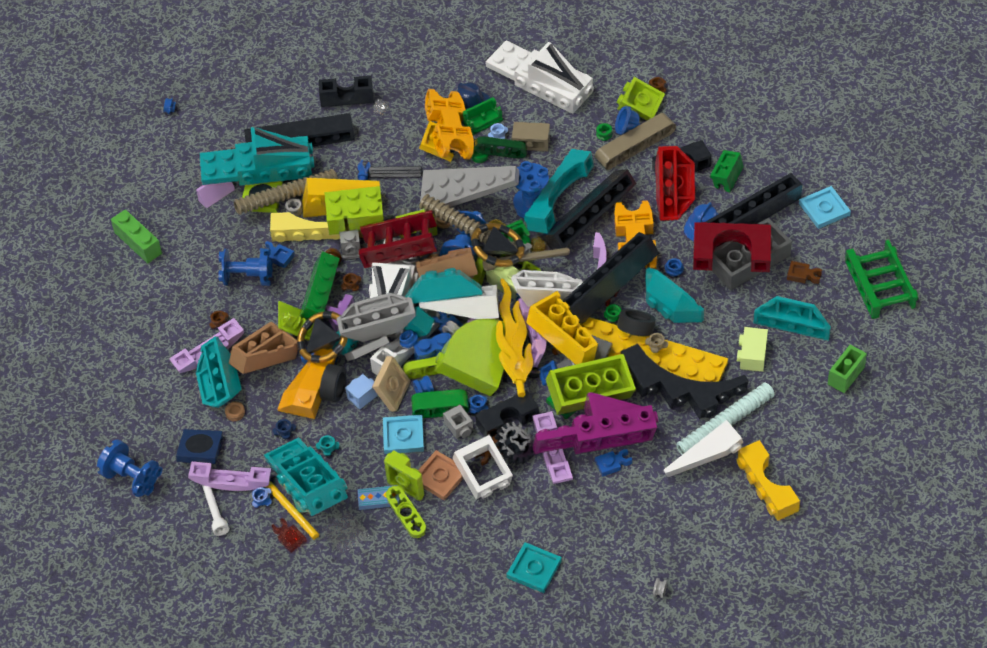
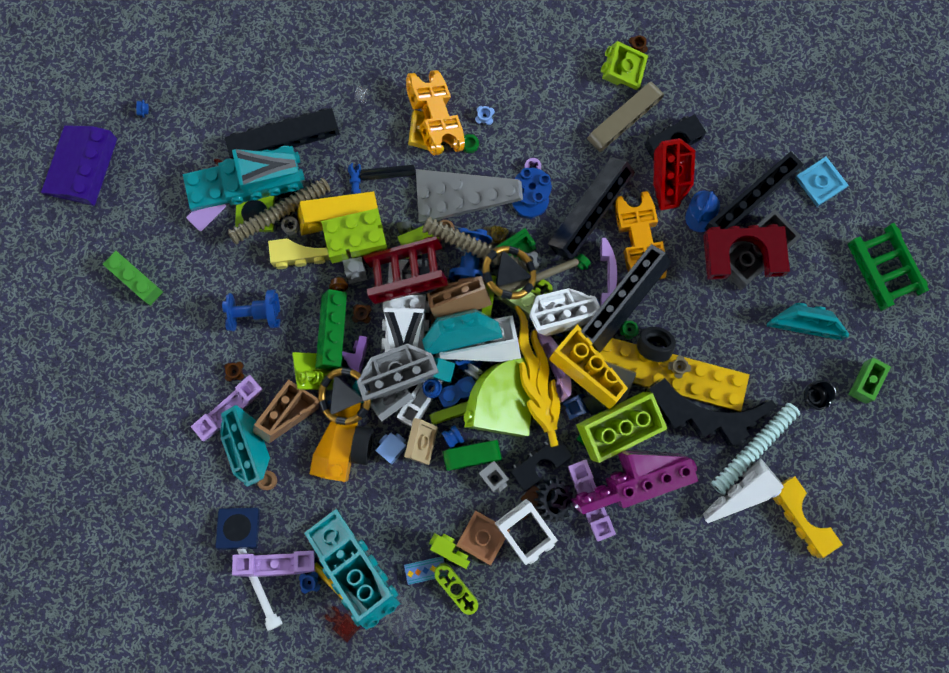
camera: 10 degrees left, 25 degrees up
(103, 145) = (80, 164): none -> dark purple slope
(116, 460) = (163, 565): blue piece -> none
(280, 255) = (284, 287): blue plate -> none
(281, 424) = (314, 497): dark blue plate -> none
(327, 440) = (360, 514): teal plate -> none
(334, 95) = (314, 83): black arch -> none
(403, 434) = (439, 492): medium azure tile -> none
(471, 94) = (456, 75): dark blue piece -> none
(477, 399) = (514, 451): blue plate -> none
(482, 116) = (467, 98): green hinge -> none
(517, 148) = (491, 137): dark green beam -> none
(534, 135) = (519, 119): dark tan brick -> none
(534, 567) = (589, 638): teal tile -> none
(537, 245) = (544, 253): clear yellow plate -> none
(543, 74) = (521, 41): white wedge -> none
(574, 166) = (570, 154): teal arch -> none
(575, 255) = (584, 262): none -> green plate
(604, 127) = (595, 101): green bush -> none
(610, 463) = (648, 508): blue plate -> none
(626, 120) = (614, 94): blue piece -> none
(660, 588) = (716, 653): light grey bush -> none
(671, 299) = (683, 310): teal wedge -> none
(674, 263) = (686, 264): blue plate -> none
(727, 170) = (721, 146): green hinge -> none
(753, 349) = (773, 362): yellowish green brick -> none
(796, 377) = (819, 394): none -> black hair
(800, 273) = (808, 265): reddish brown plate -> none

